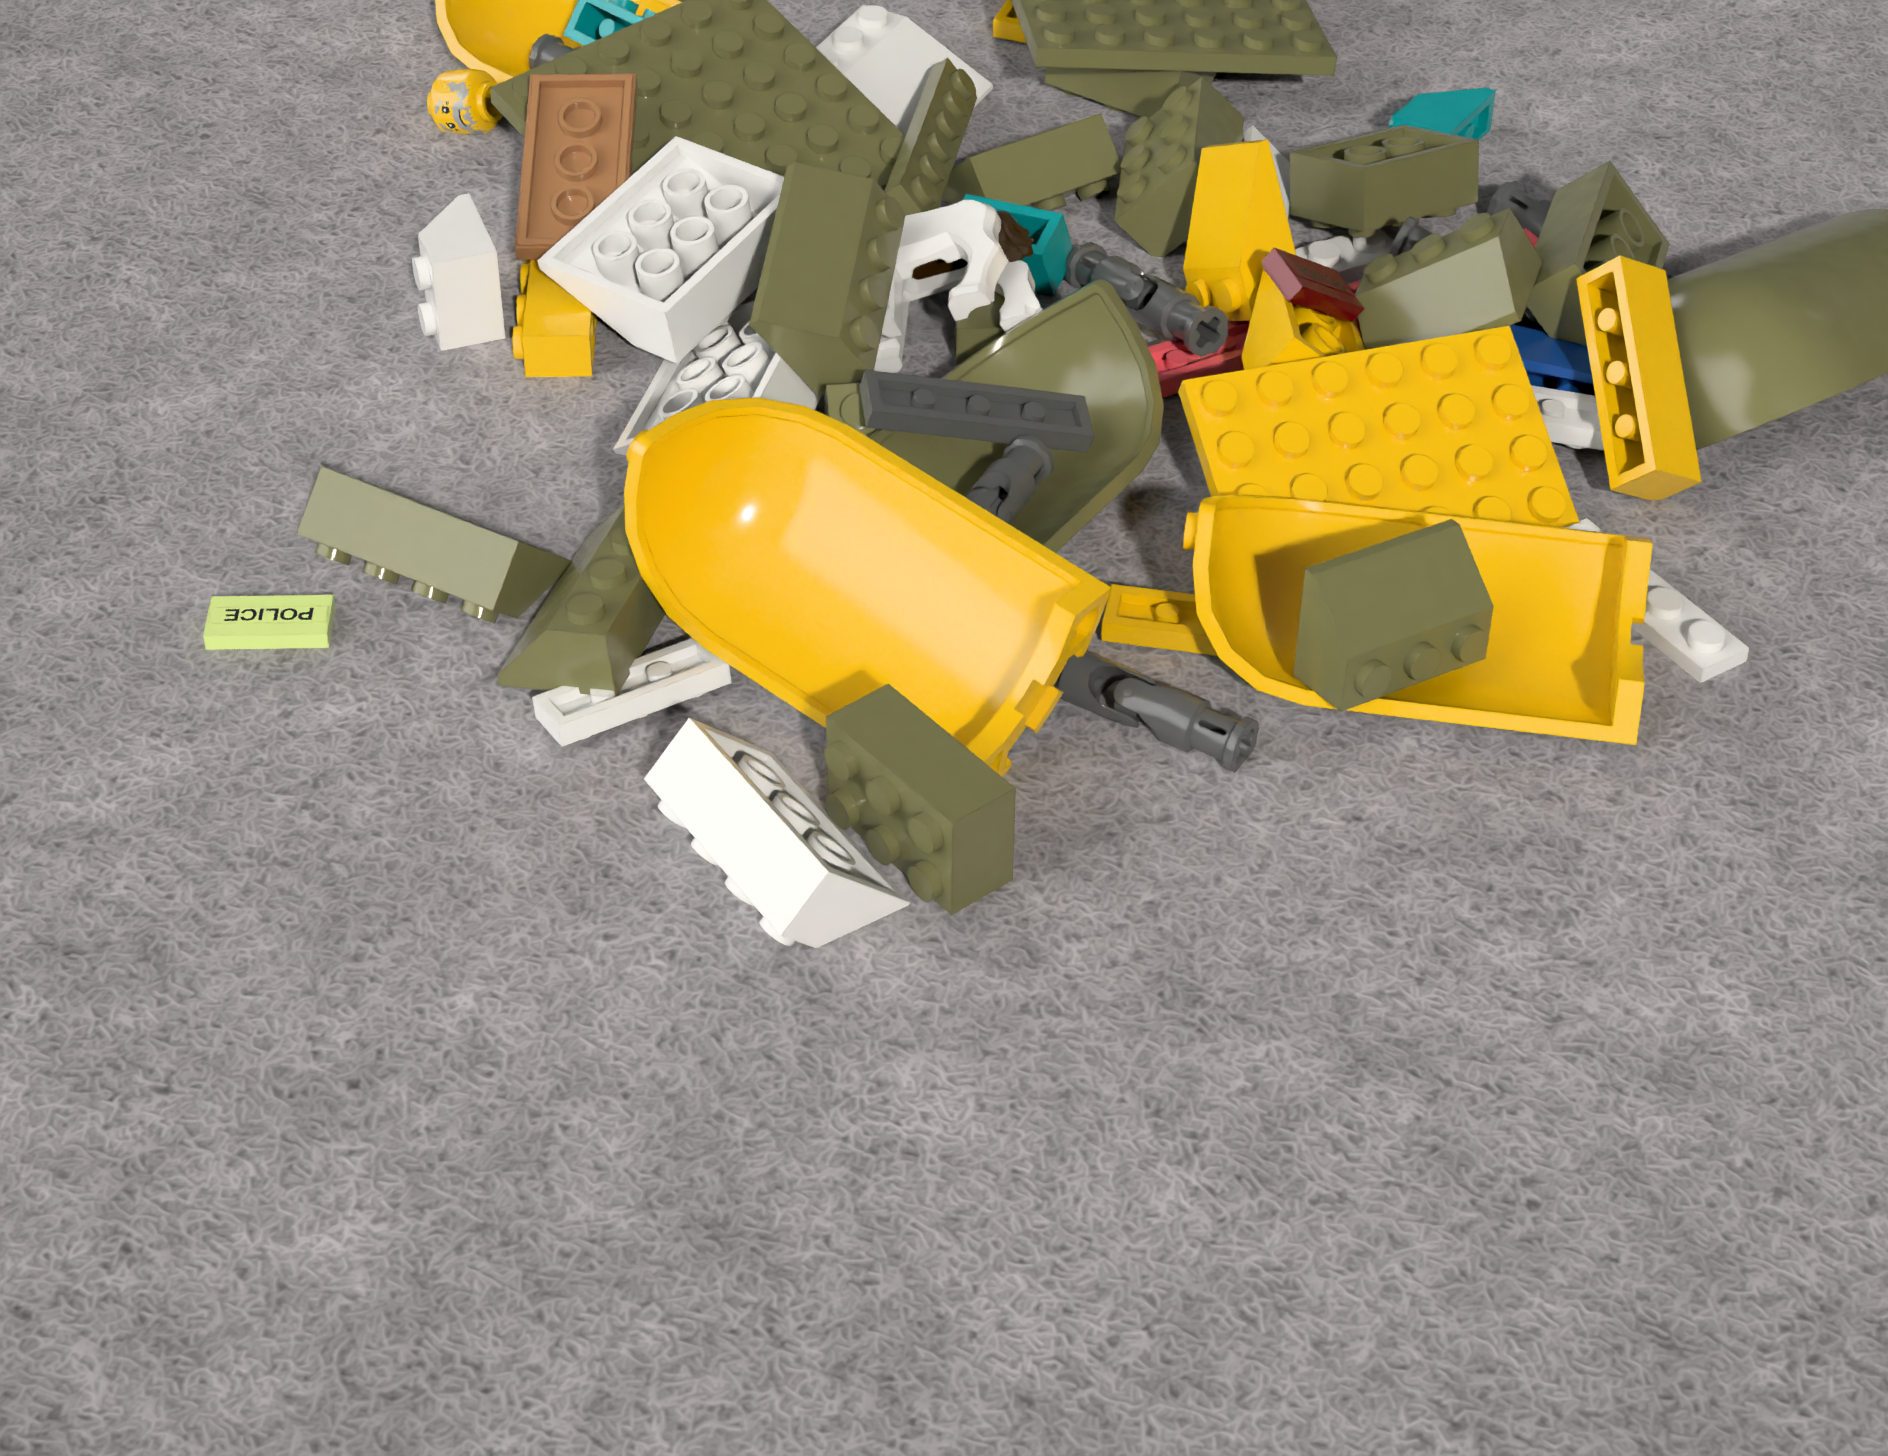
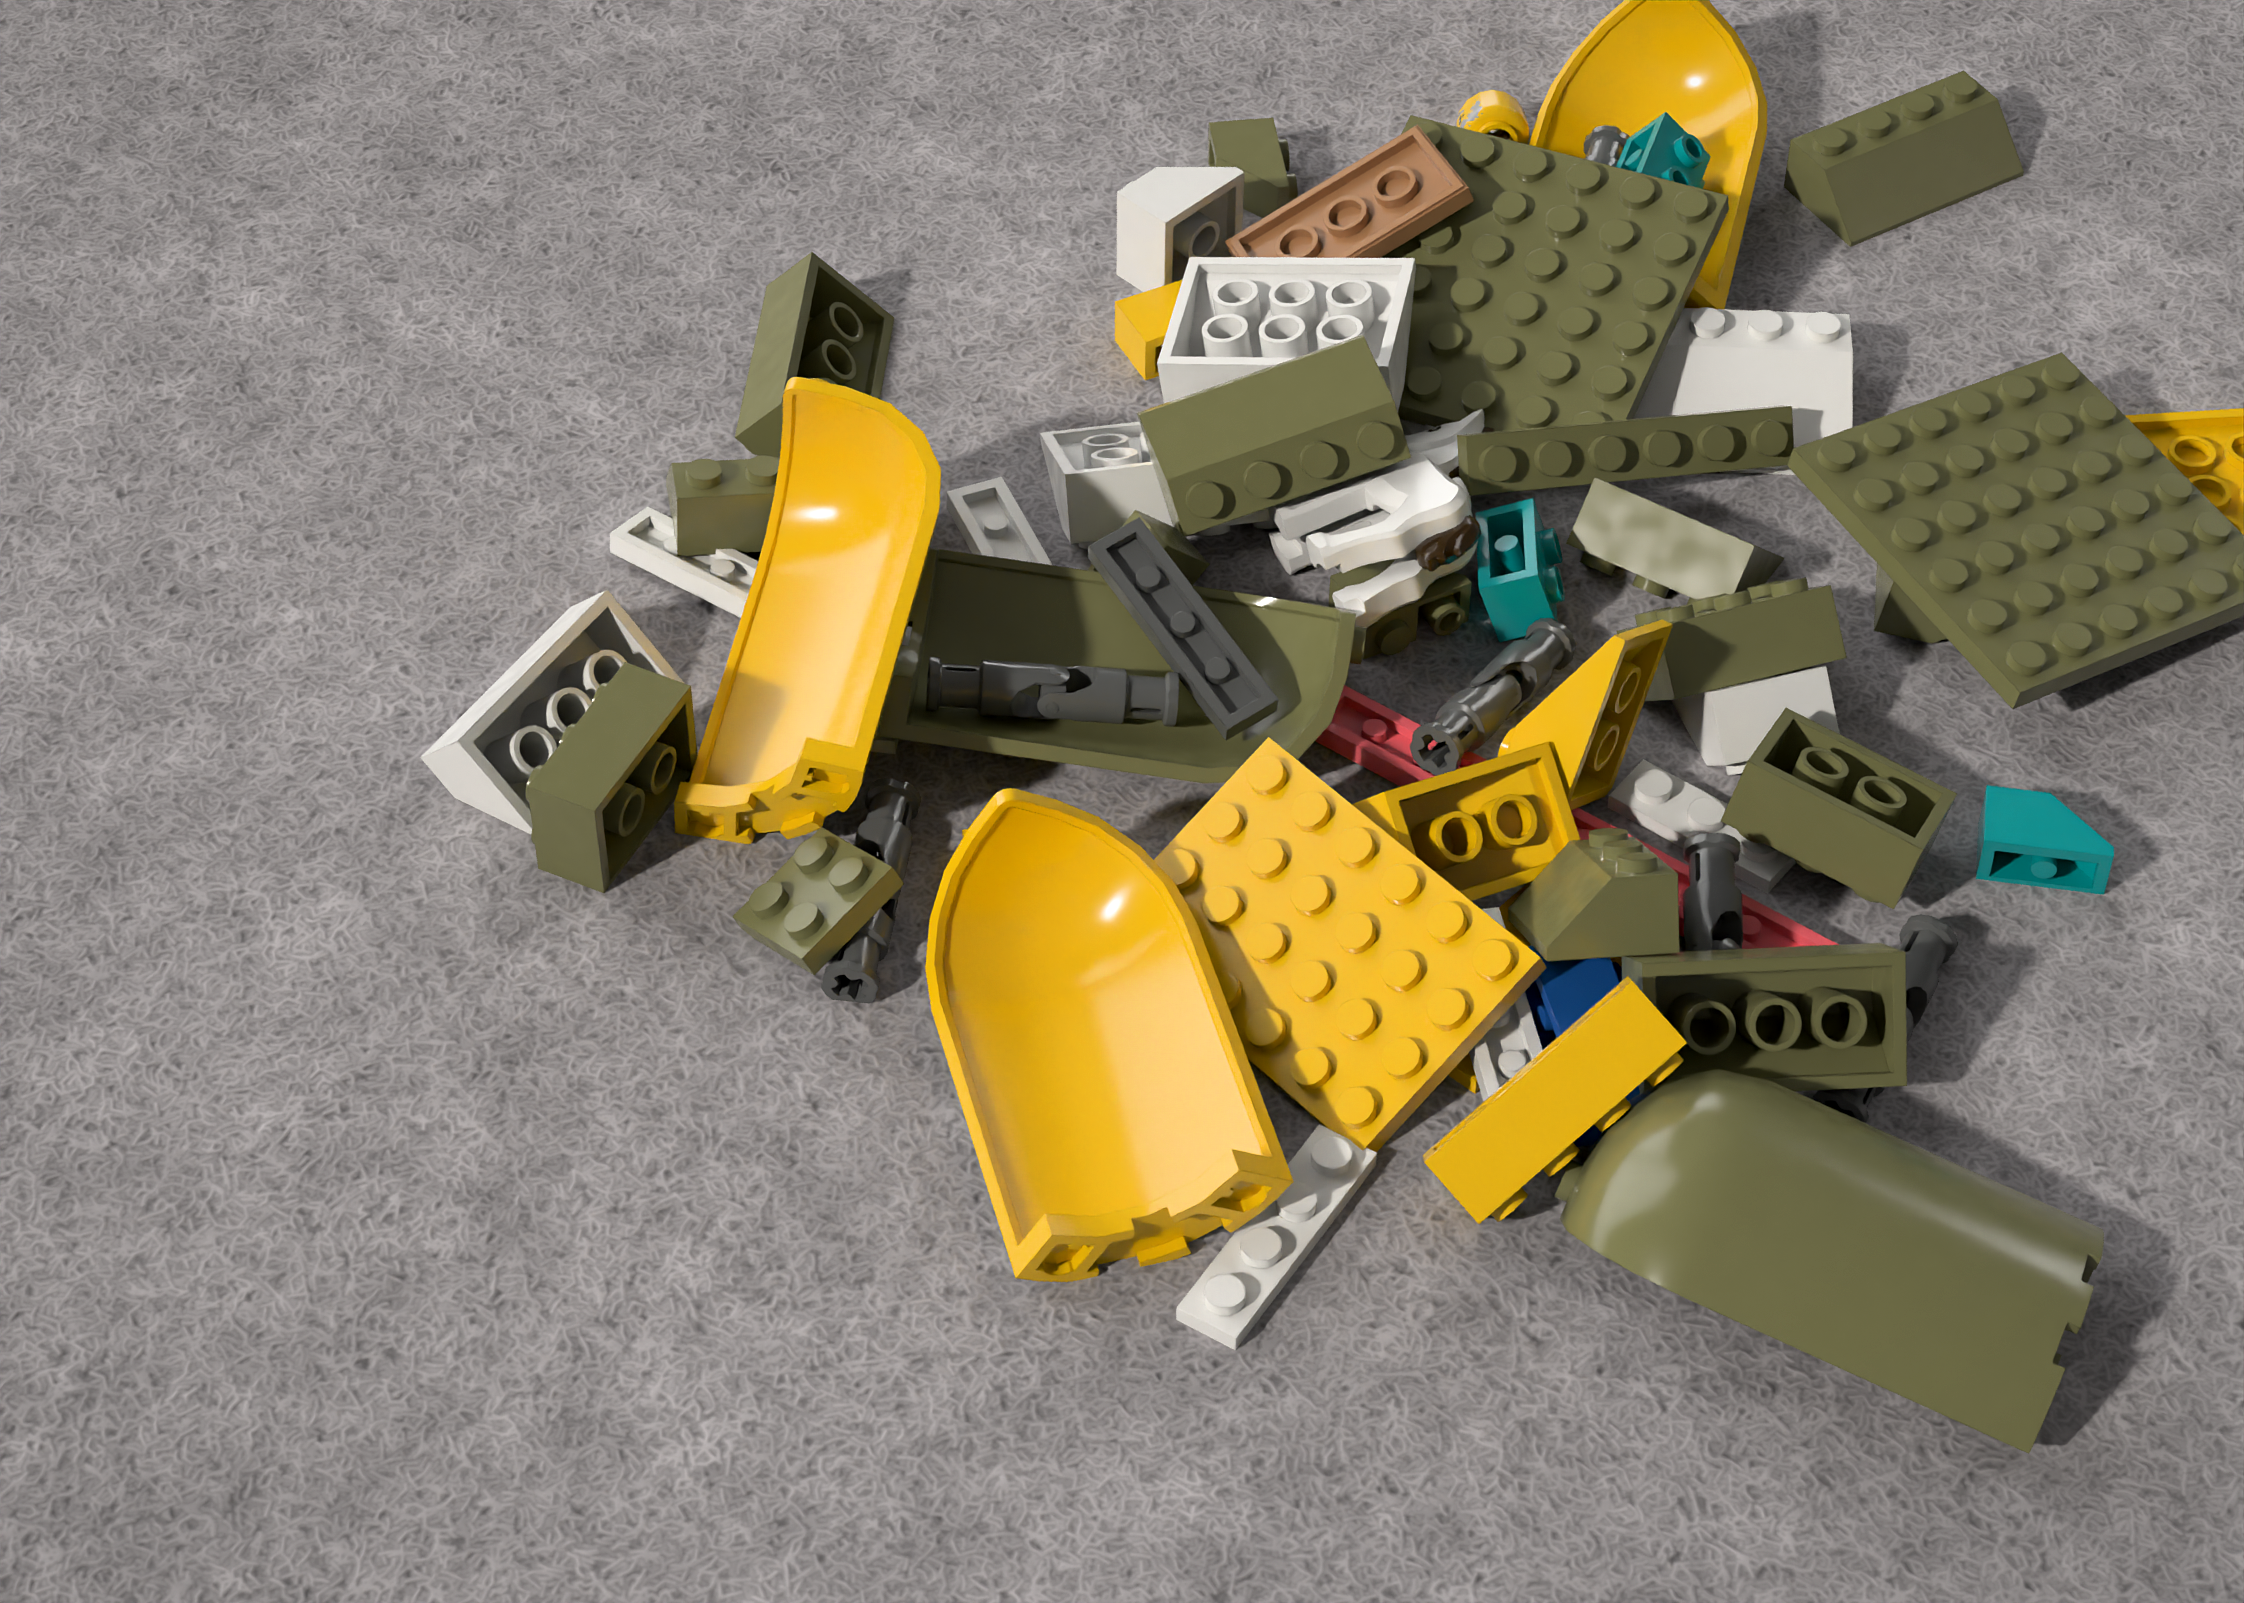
camera: 65 degrees right, 5 degrees up
(269, 622) = (671, 325): yellowish green tile -> none
(383, 228) = (1262, 157): none -> olive slope
(1148, 723) = (818, 900): none -> olive plate
(1312, 285) = (1525, 791): dark red tile -> none
(1391, 616) = (1030, 1013): olive slope -> none

